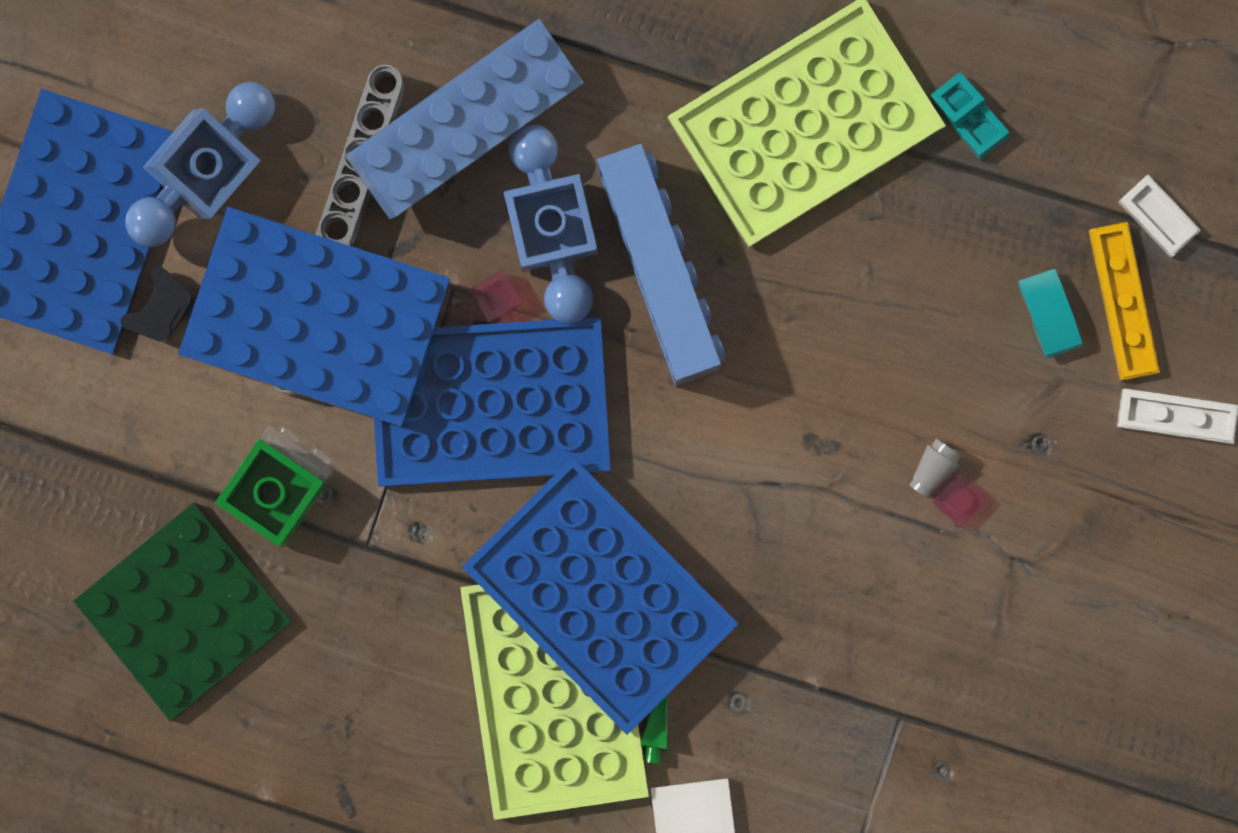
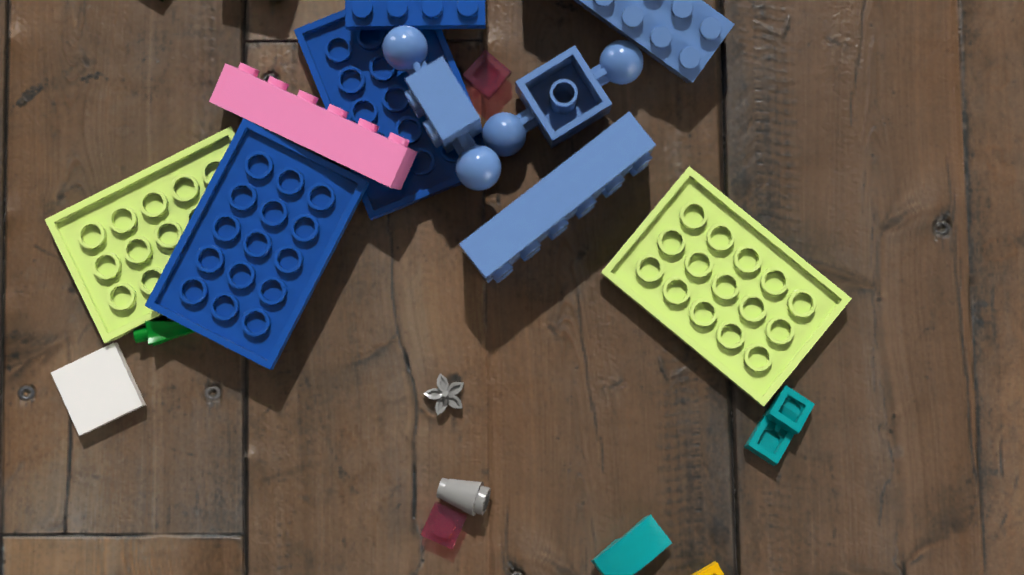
camera: 75 degrees right, 0 degrees up
(493, 497) = (313, 126): none -> bright pink brick
(524, 350) = (445, 106): none -> medium blue brick
(822, 454) = (445, 394): none -> light grey plant

